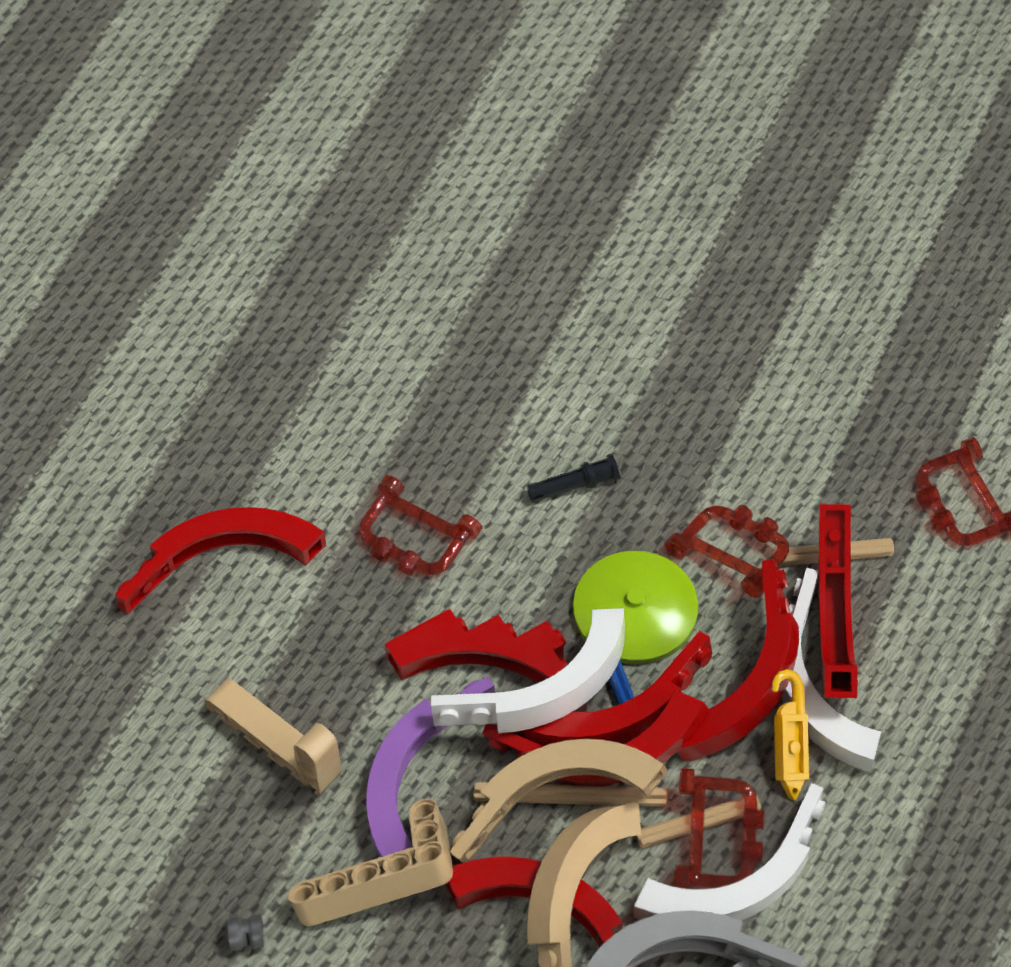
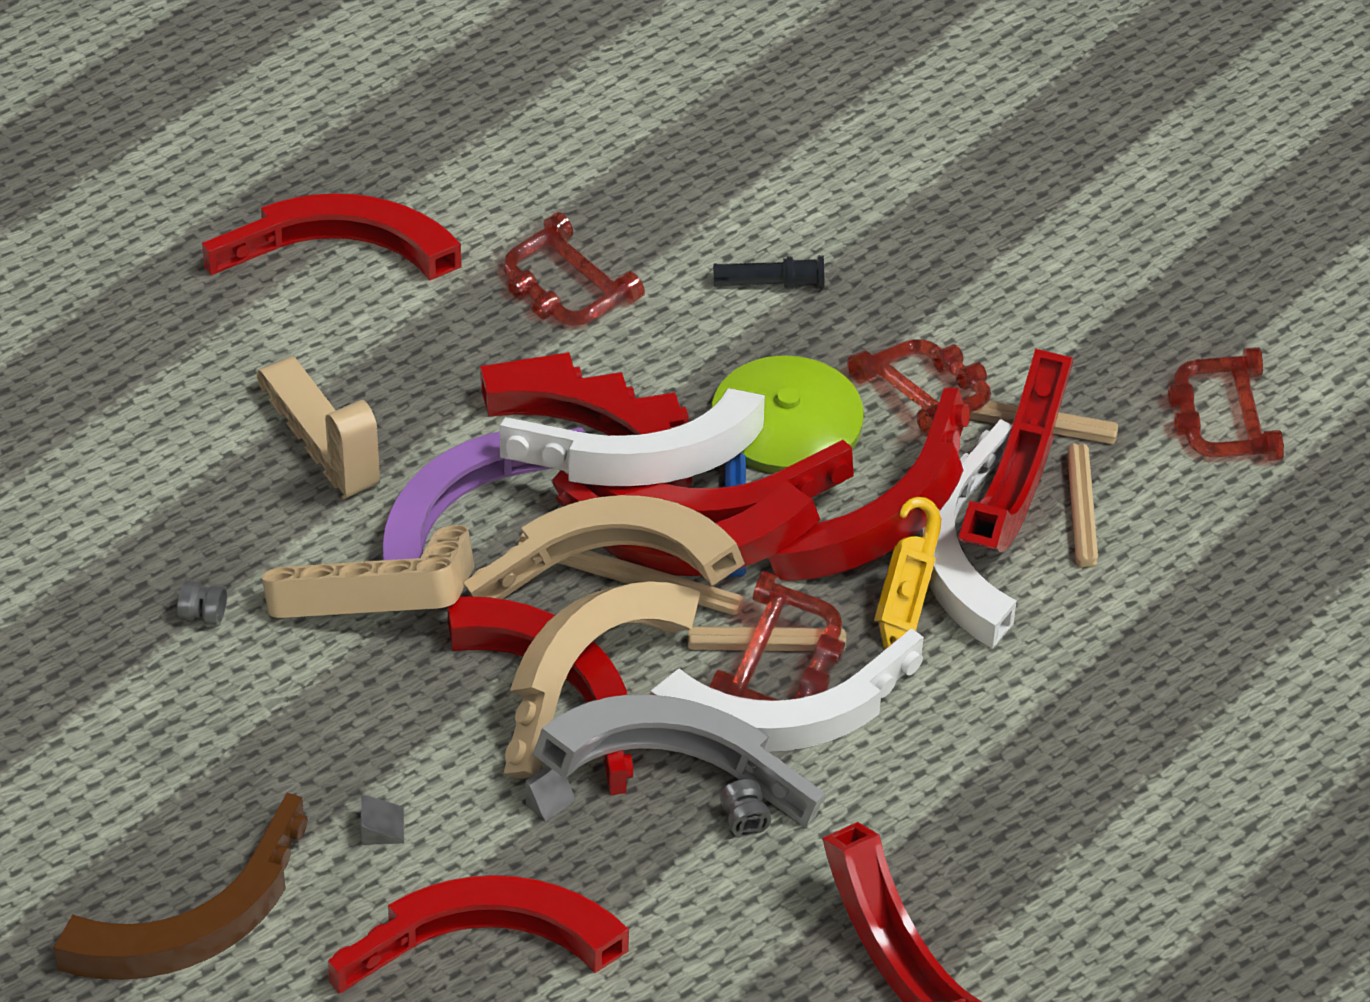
camera: 15 degrees right, 10 degrees down
(891, 621) = (1082, 505): none -> tan axle

